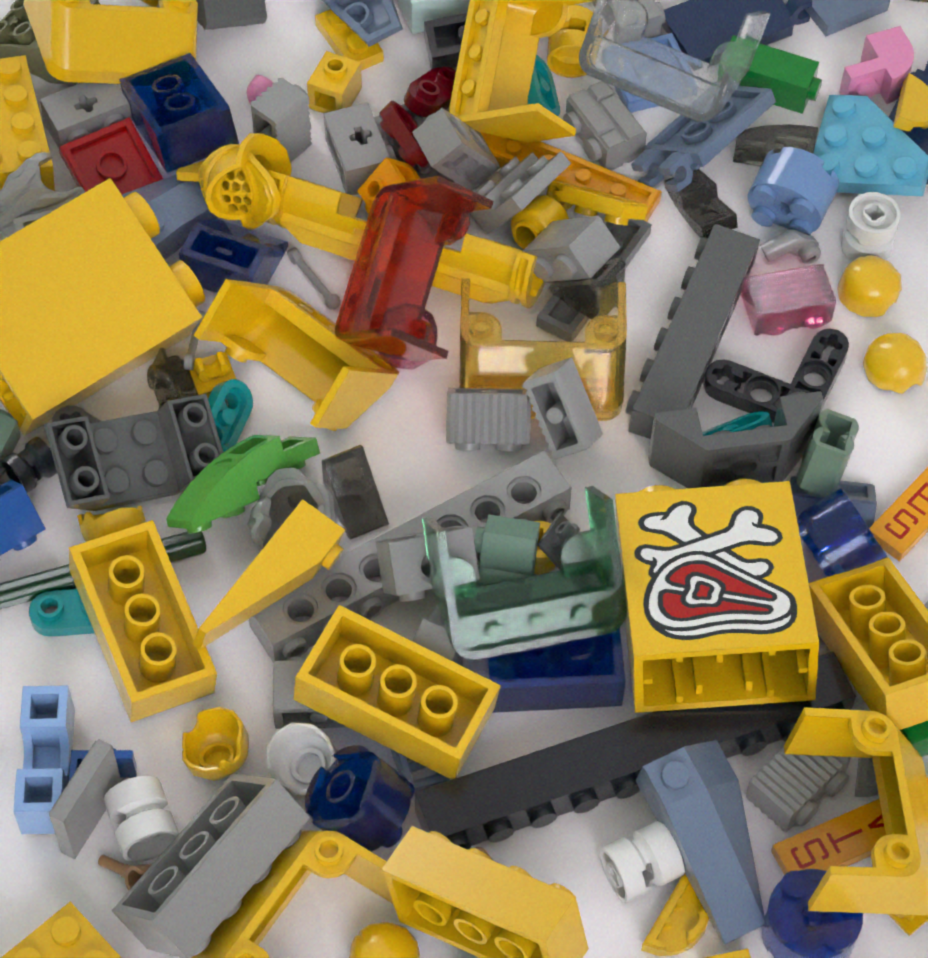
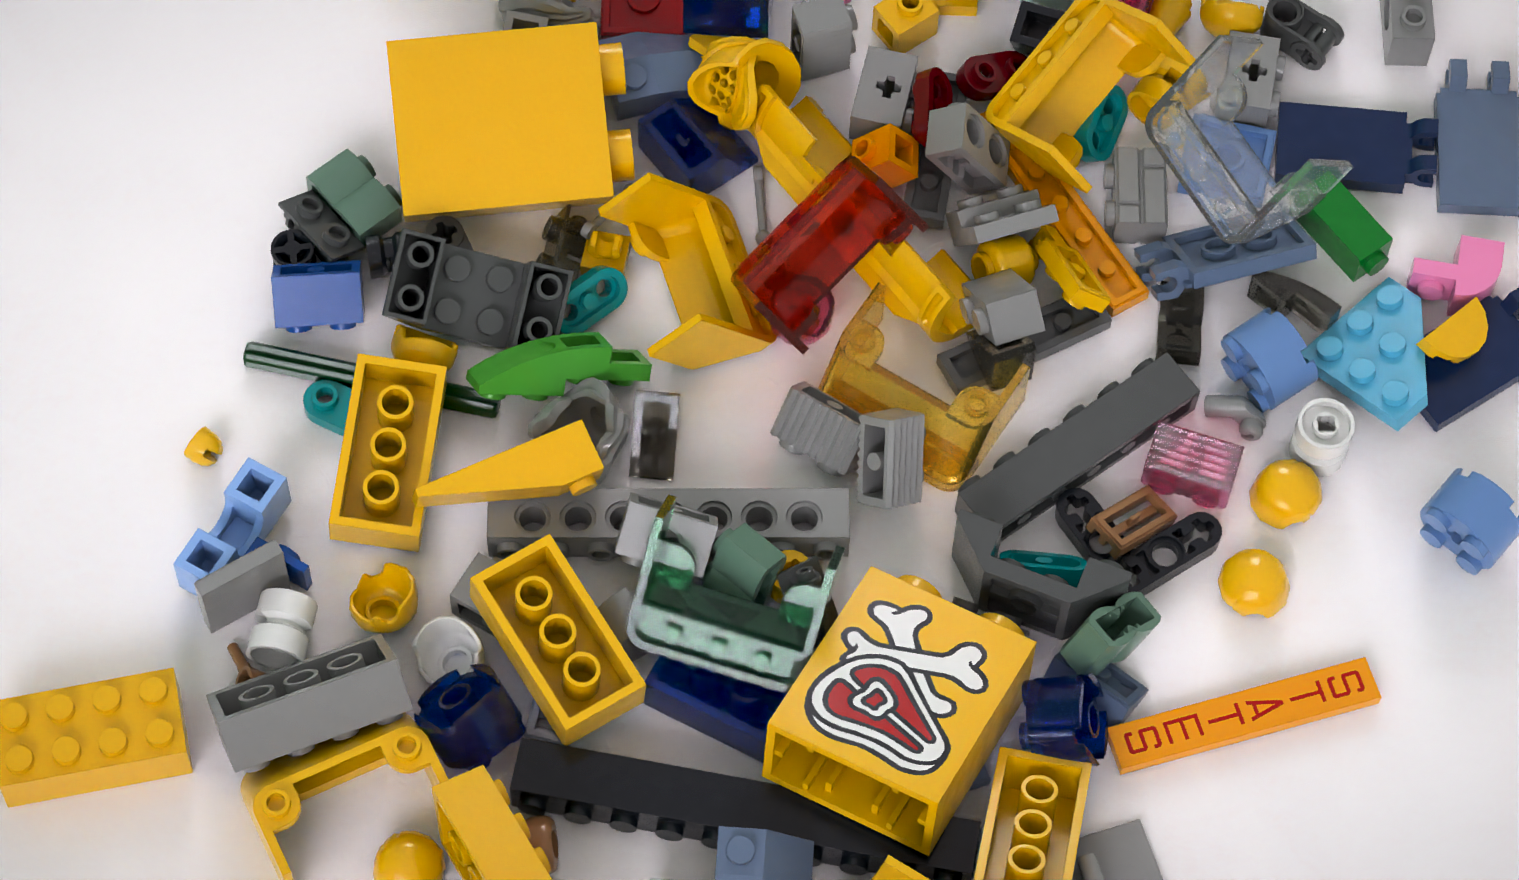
camera: 30 degrees right, 5 degrees up
(770, 378) = (1112, 535): none -> medium nougat tile

